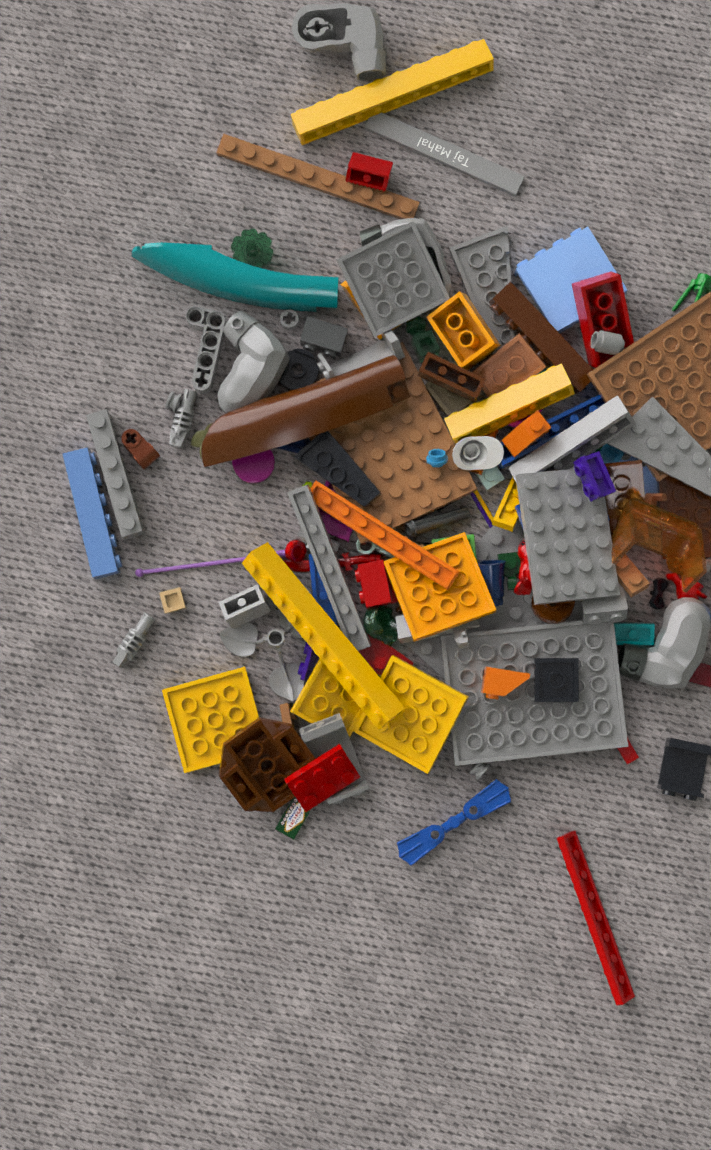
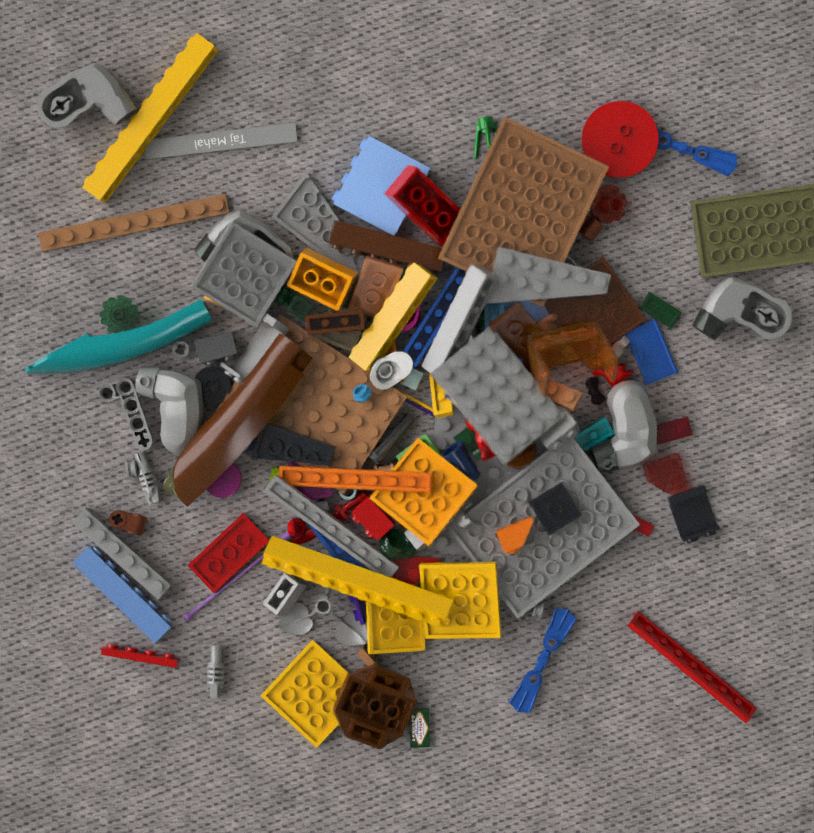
camera: 30 degrees left, 5 degrees up
(65, 574) = (148, 656): none -> red plate
(172, 600) = (226, 622): tan plate -> none
(215, 535) = (228, 552): none -> red plate
(322, 778) = (423, 689): red plate -> none
(324, 736) = (424, 668): light grey panel -> none
(369, 171) = (171, 195): red brick -> none
(526, 434) = (419, 333): orange slope -> none
(594, 476) = (490, 339): dark purple bracket -> none
(607, 342) = (439, 224): light grey brick -> none
(680, 714) = (666, 474): none -> clear red plate

